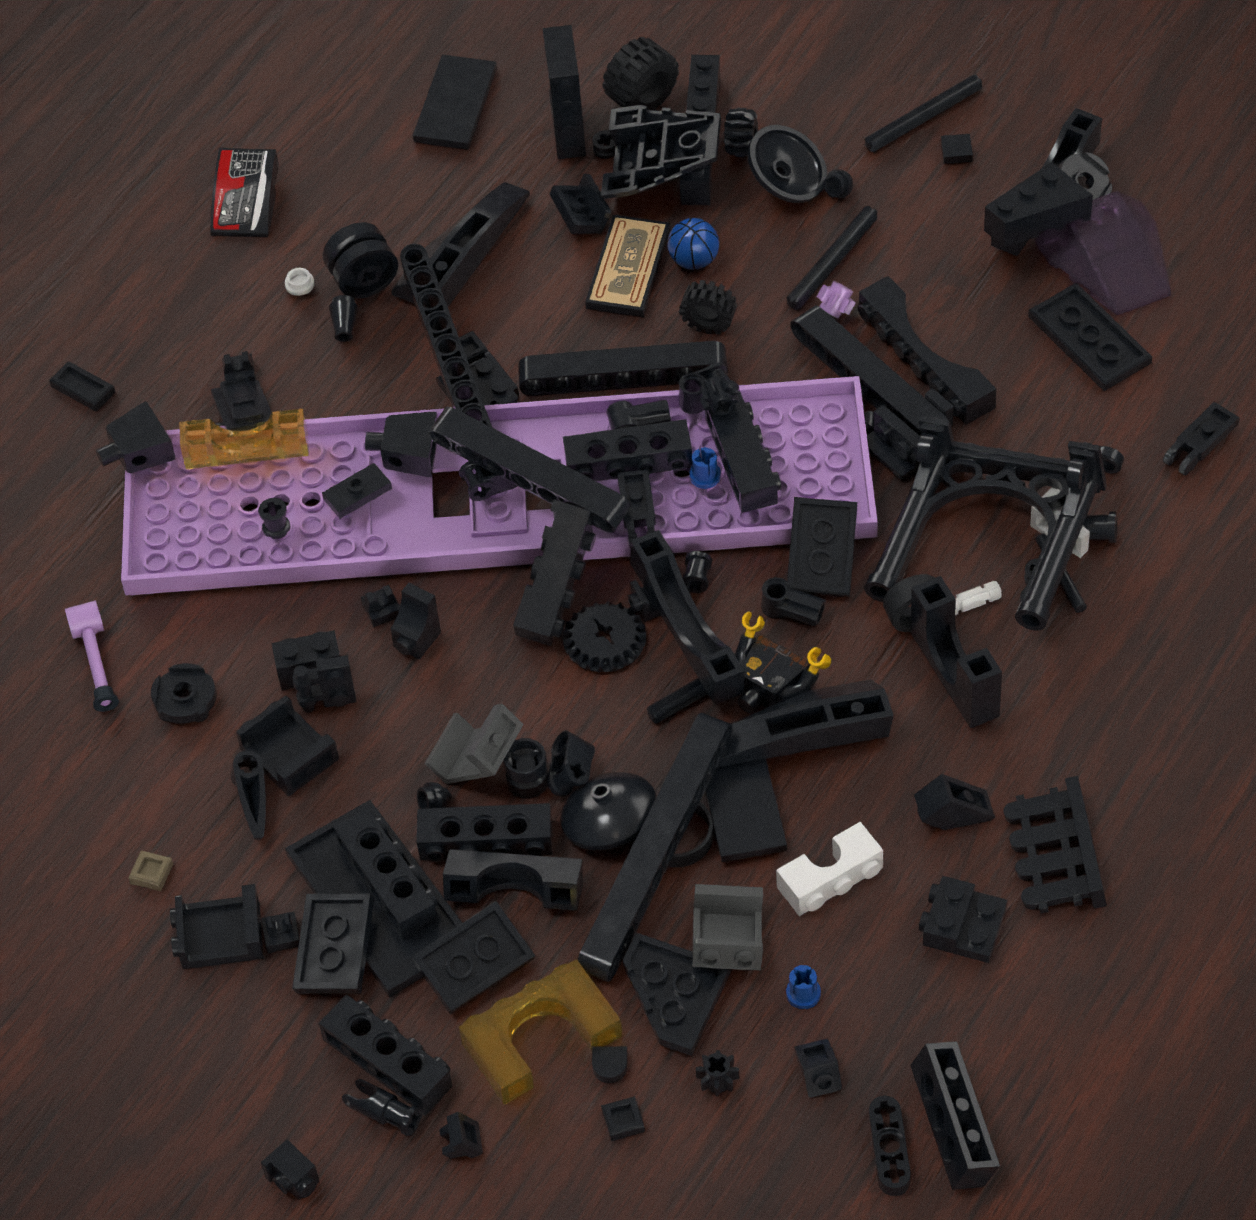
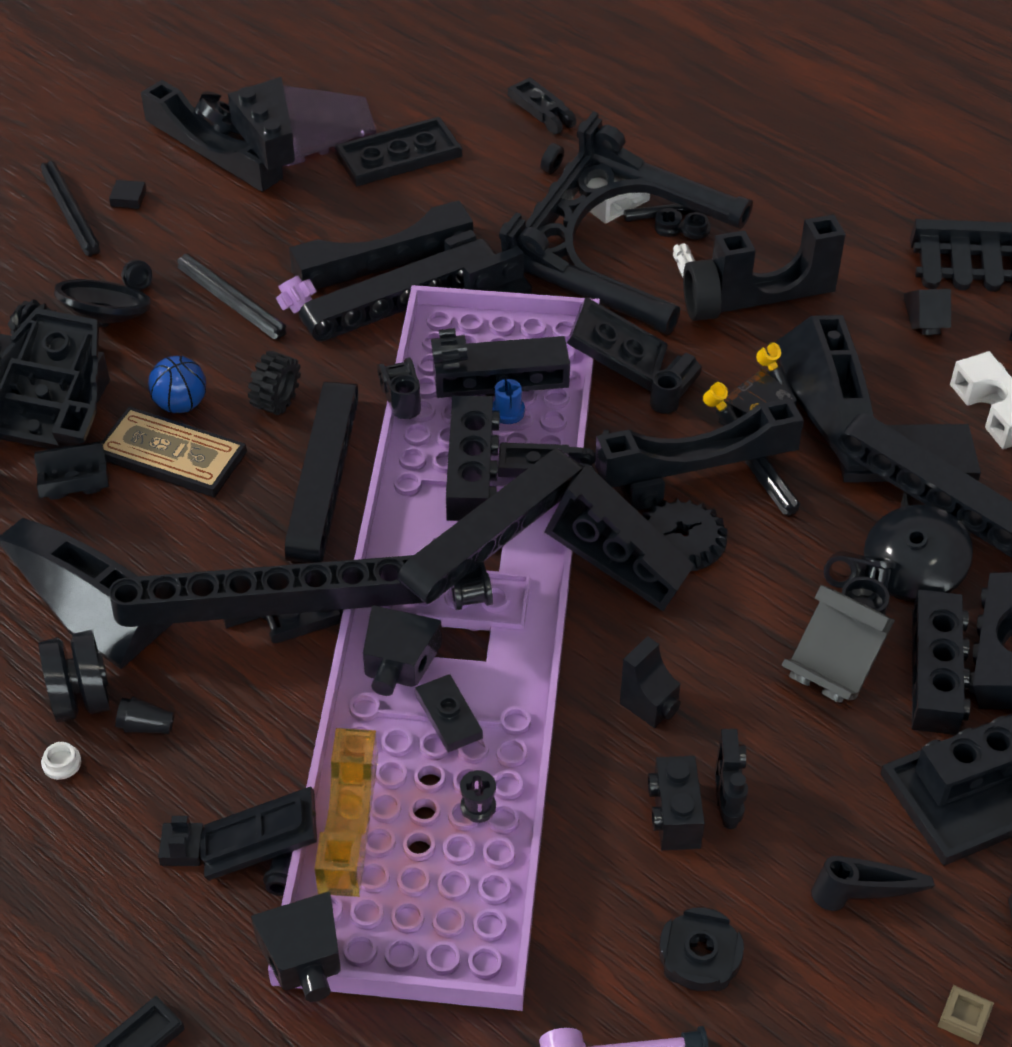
camera: 85 degrees left, 5 degrees down
(287, 746) = (798, 839): black panel -> none
(380, 606) = (599, 728): black tile -> none
(433, 796) = (887, 705): black plate -> none
(624, 414) = (424, 447): black piece -> none

